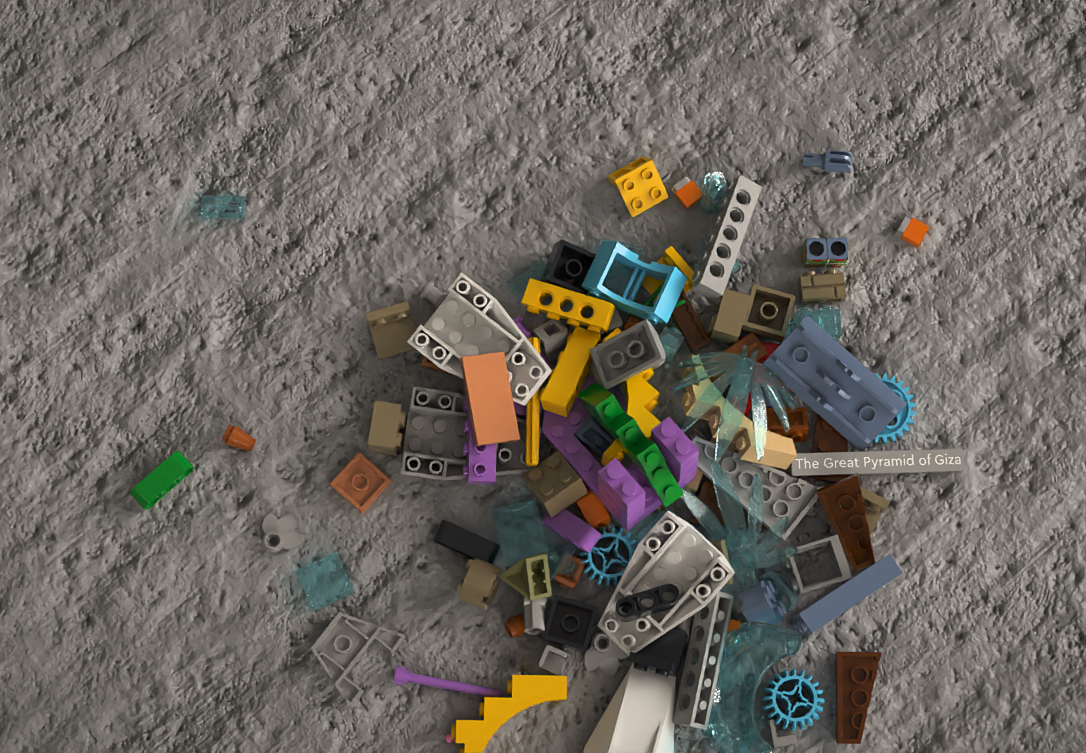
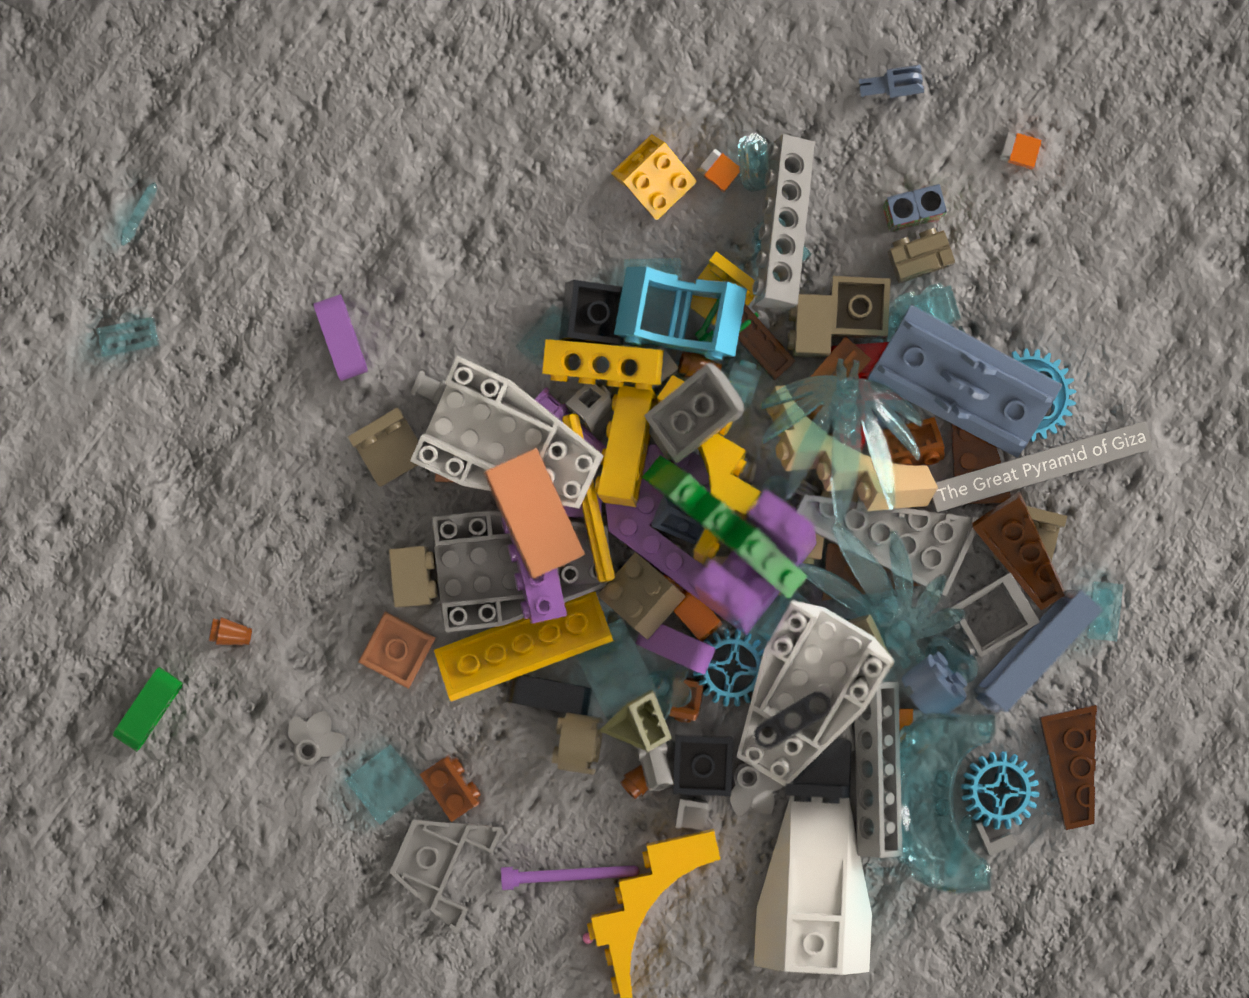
camera: 10 degrees left, 10 degrees up
(244, 133) = (130, 230): none -> clear light blue piece
(374, 595) = (450, 787): none -> dark orange bracket
(378, 244) = (340, 337): none -> medium lavender beam
(455, 501) = (521, 647): none -> yellow plate
(903, 585) = (1106, 624): none -> clear light blue plate

